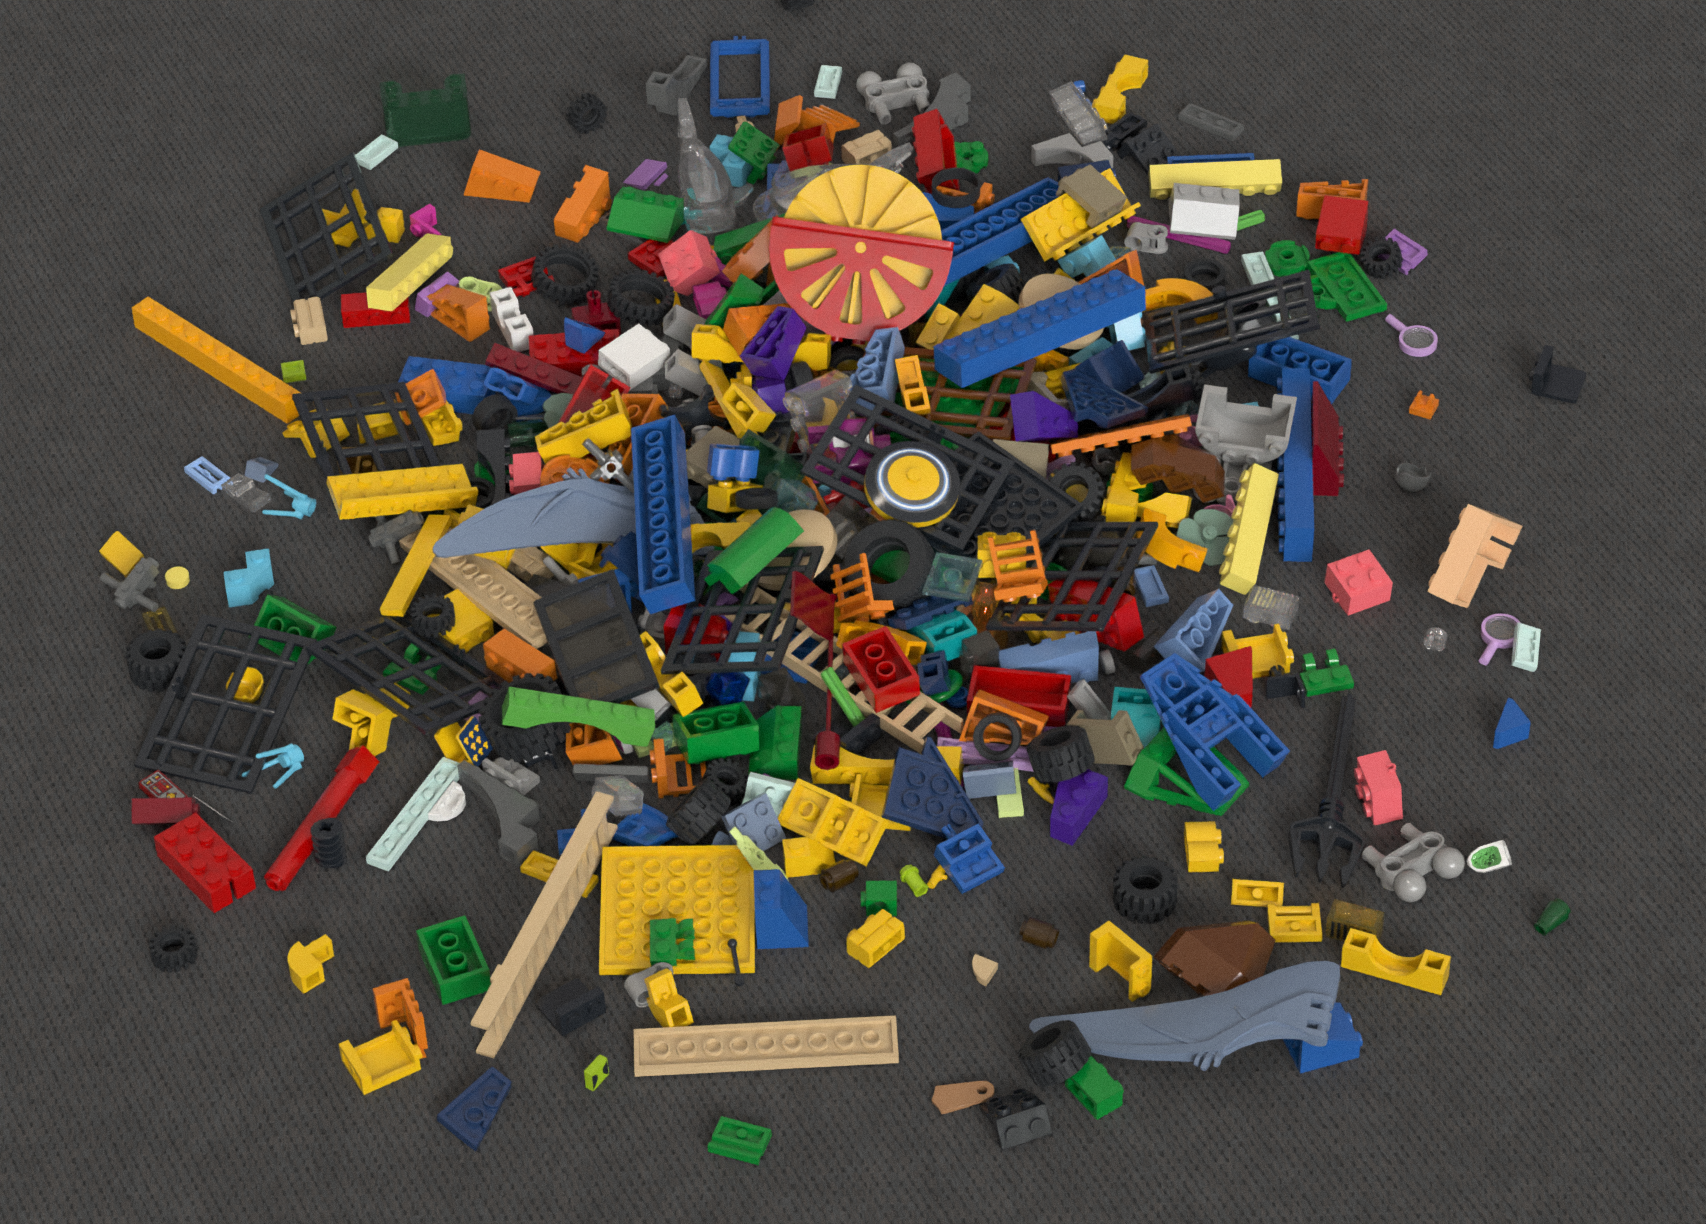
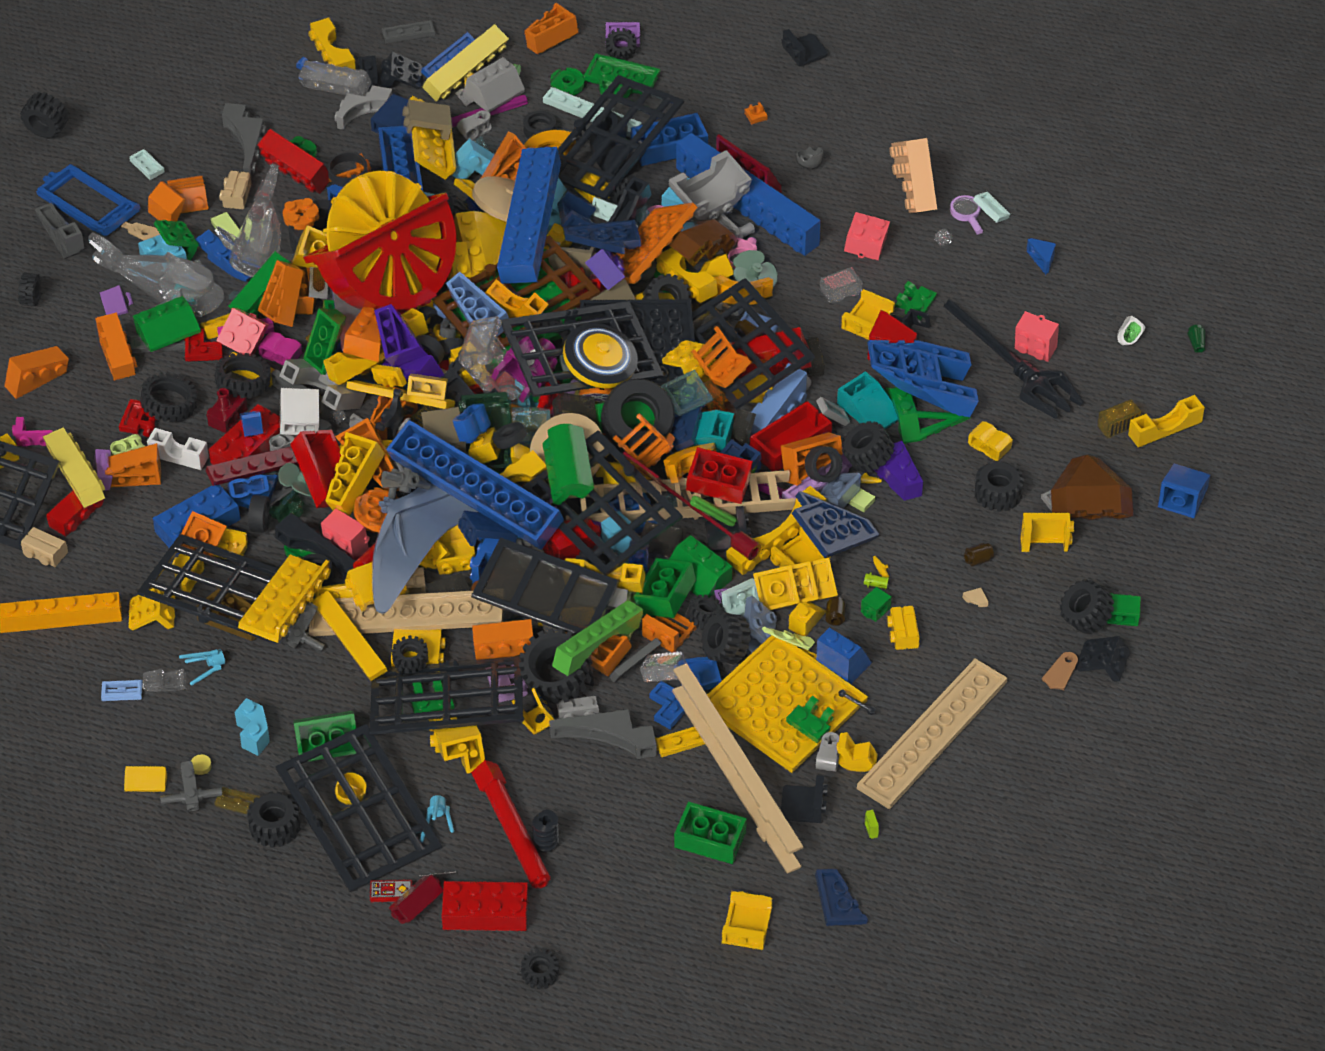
camera: 50 degrees left, 5 degrees up
(258, 467) = (150, 660): sand blue slope -> none
(293, 371) = (77, 586): lime tile -> none
(307, 961) = (629, 911): yellow brick -> none
(398, 1003) = (724, 881): orange plate -> none
(413, 816) = (559, 775): light aqua plate -> none
(449, 804) = (569, 753): white plate -> none
(559, 573) = (440, 574): light grey bar -> none
(739, 1140) = (993, 792): green plate -> none
(808, 147) = (215, 208): red piece -> none
(904, 91) = (204, 137): light grey piece -> none
(968, 857) = (889, 544): blue plate -> none
(1111, 740) = (882, 413): dark tan panel -> none
(1197, 629) = (829, 327): medium blue wedge -> none
(1248, 528) = (776, 248): light yellow brick -> none
(1256, 893) = (1047, 443): yellow slope -> none
(1279, 1005) = (1142, 524): sand blue animal -> none
(1294, 923) = (1092, 445): yellow plate -> none
(1342, 225) = (580, 40): red slope -> none
(1405, 867) = (1097, 374): light grey piece -> none
(1415, 339) = (697, 79): piece -> none

